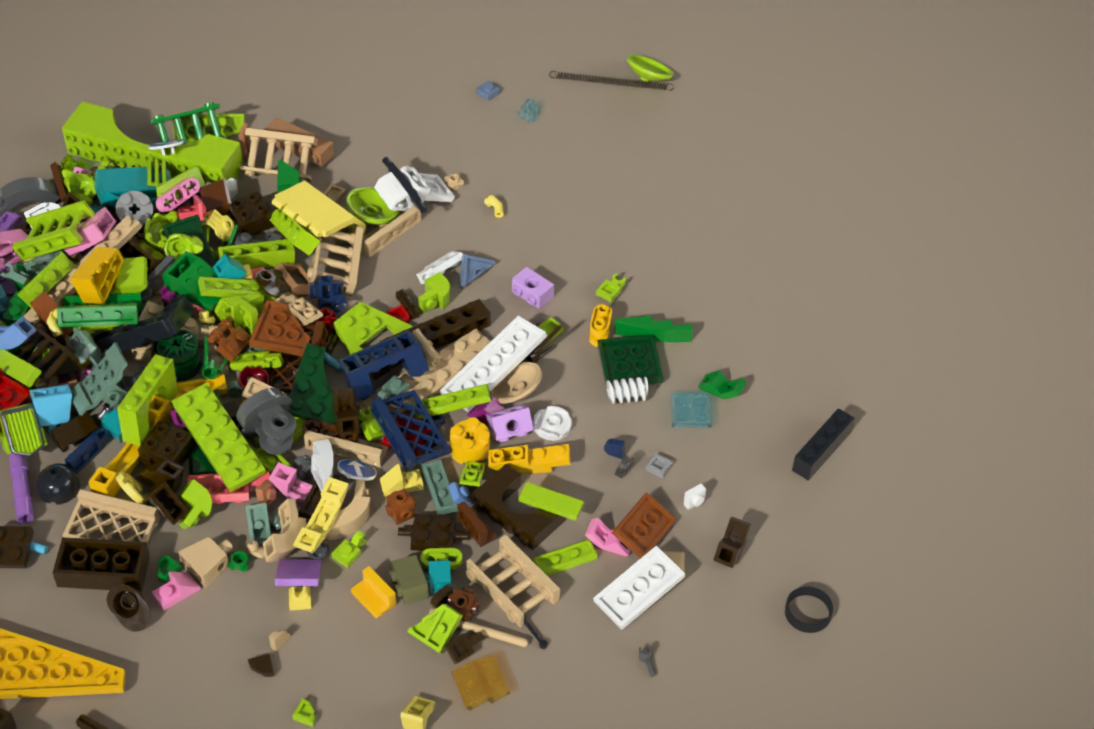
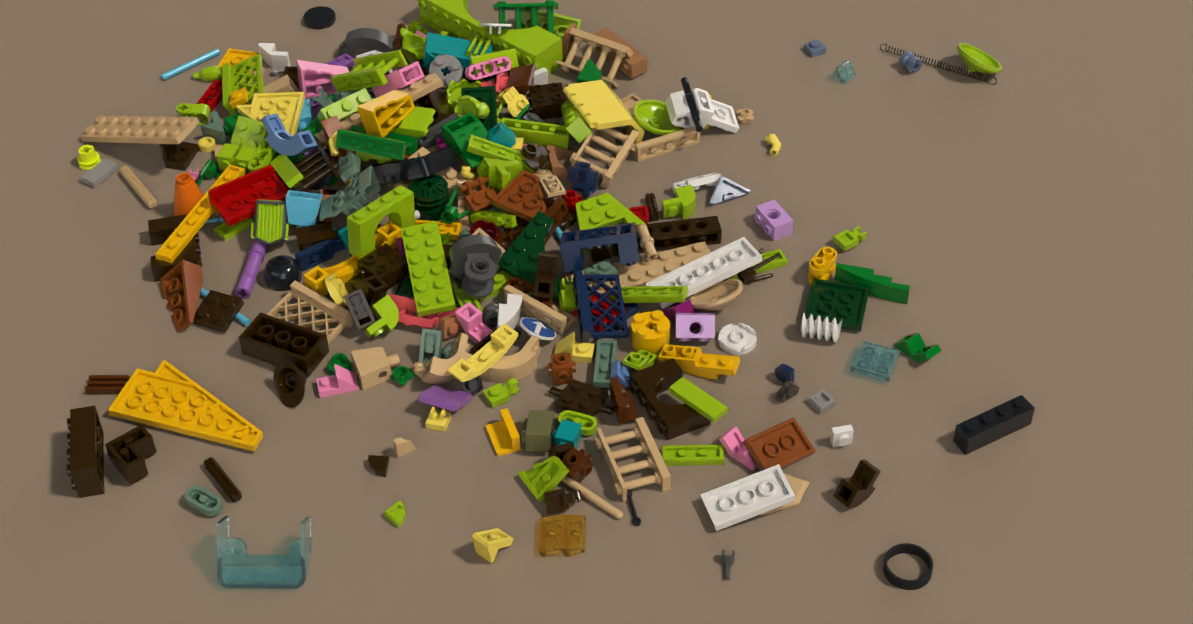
camera: 25 degrees right, 5 degrees down
(586, 85) = (910, 62): none -> sand blue wheel

